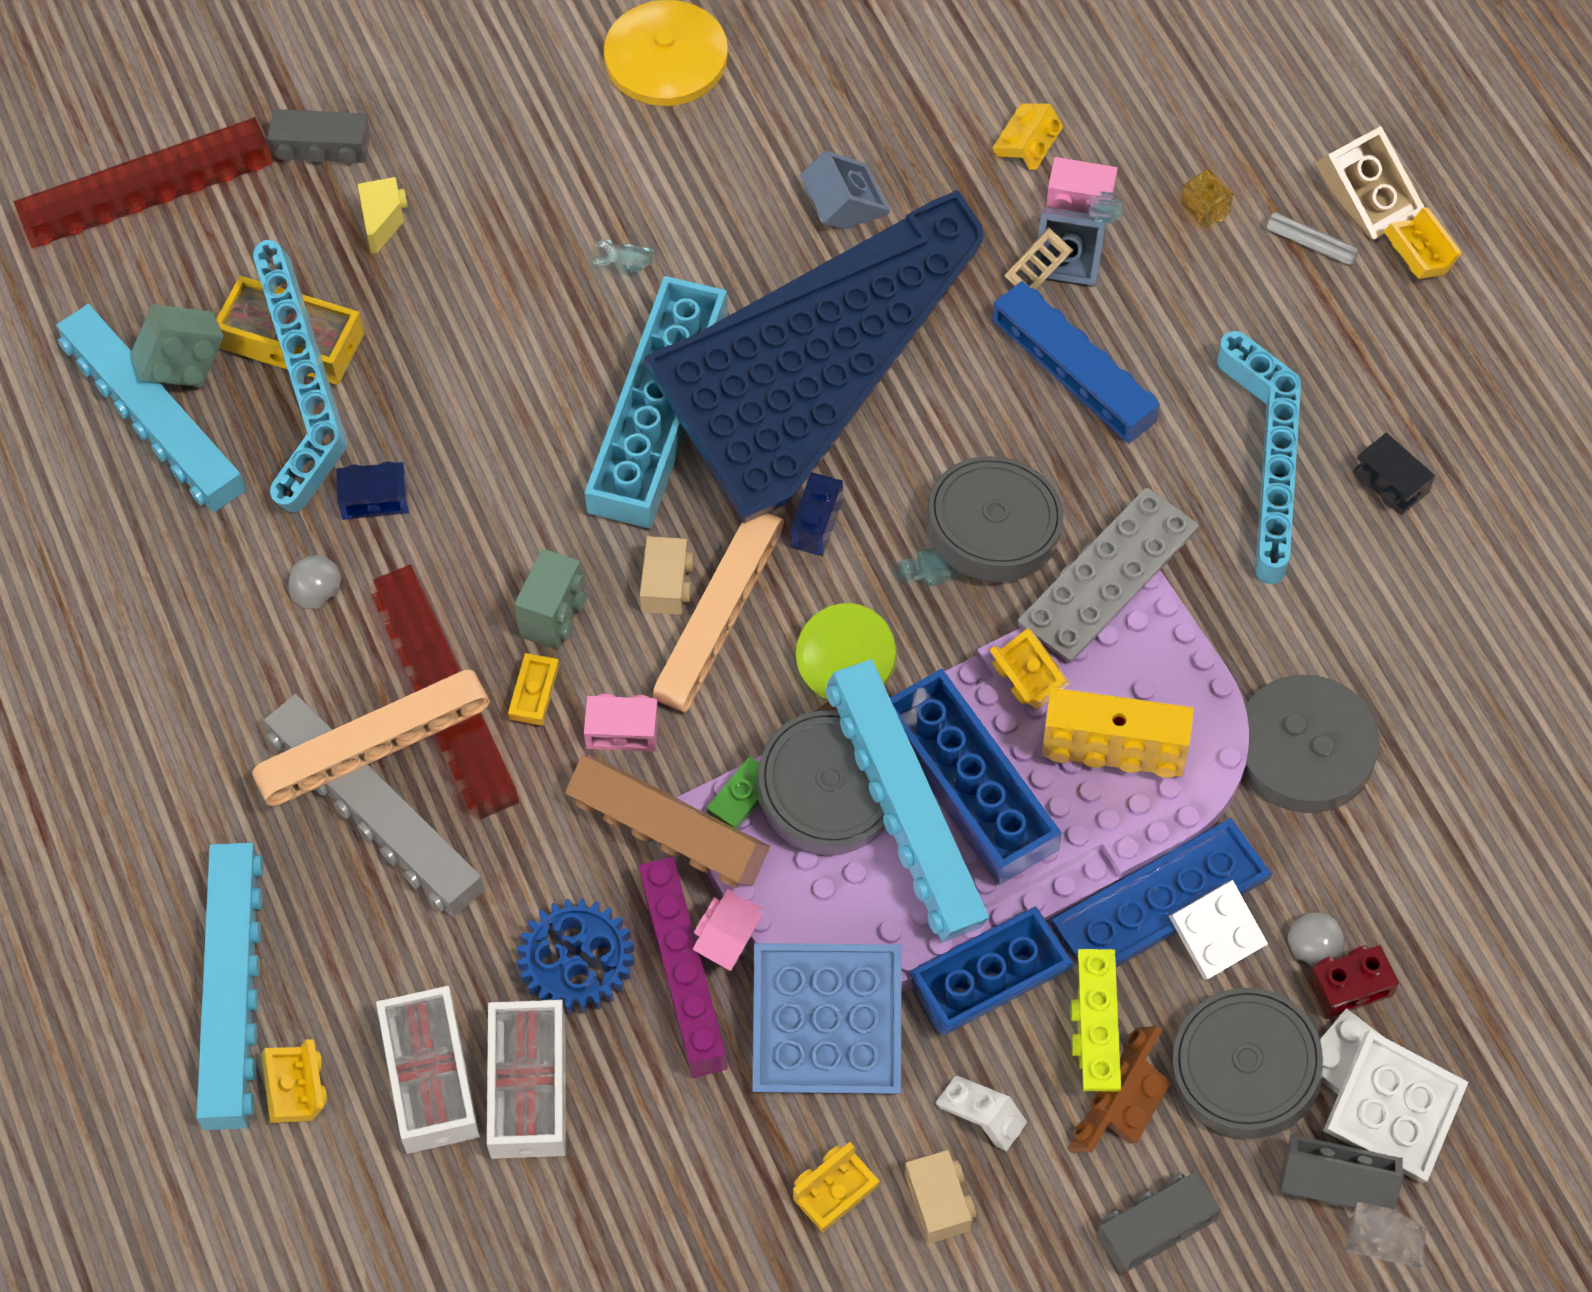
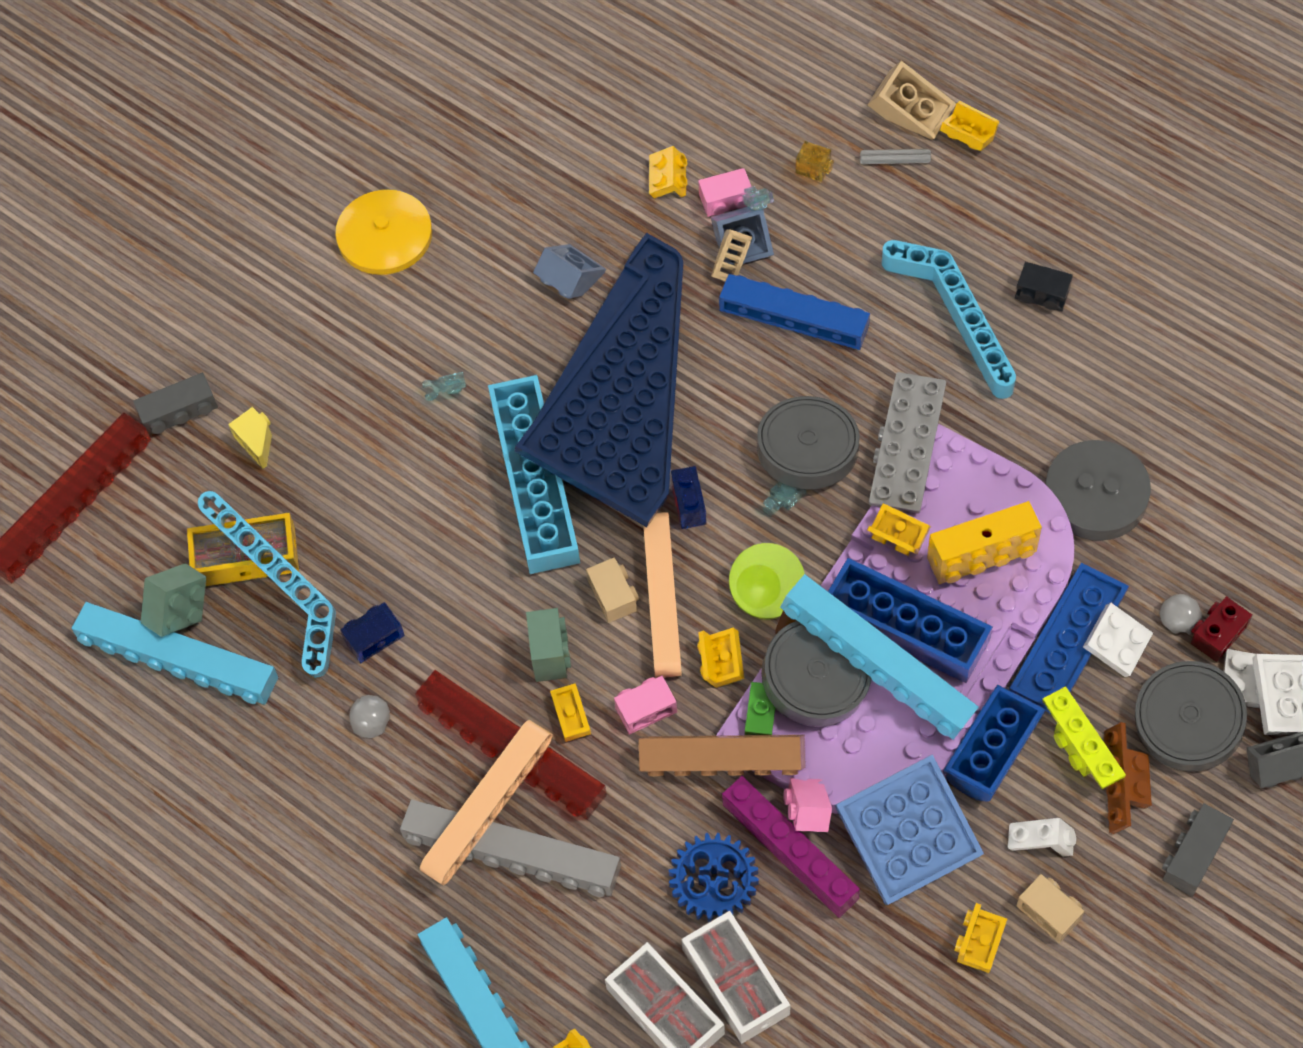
camera: 25 degrees left, 0 degrees up
(739, 712) = (720, 657): none -> yellow bracket

